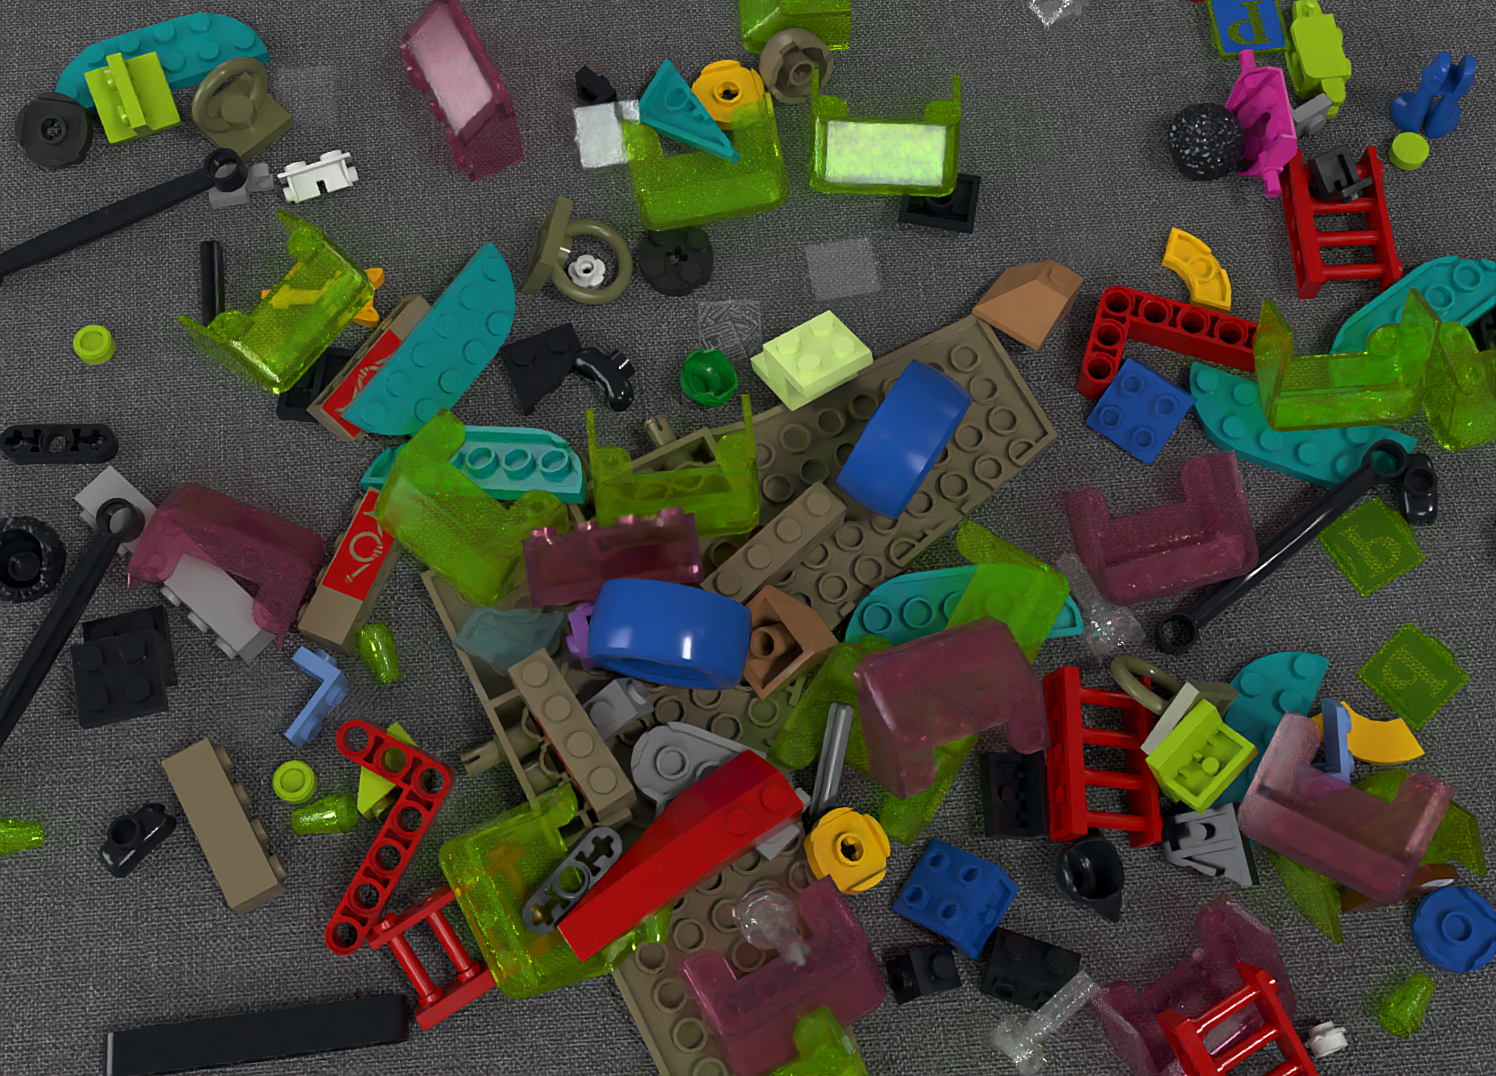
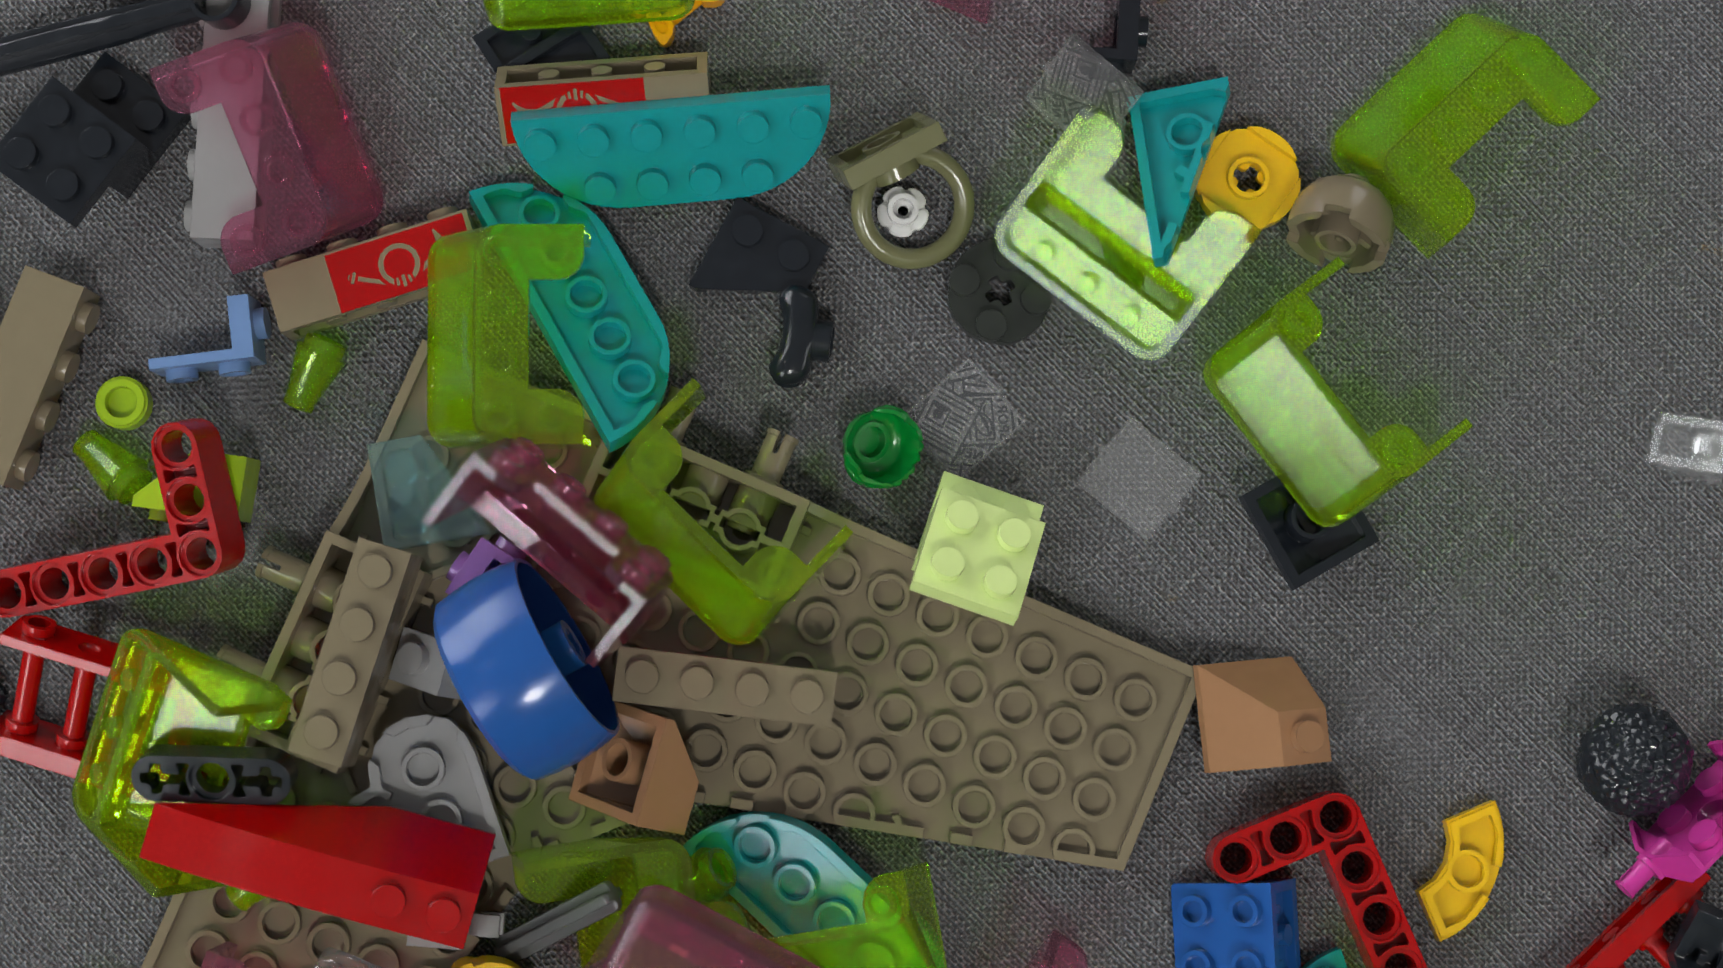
camera: 50 degrees right, 15 degrees up
(904, 439) = (944, 736): blue wheel -> none

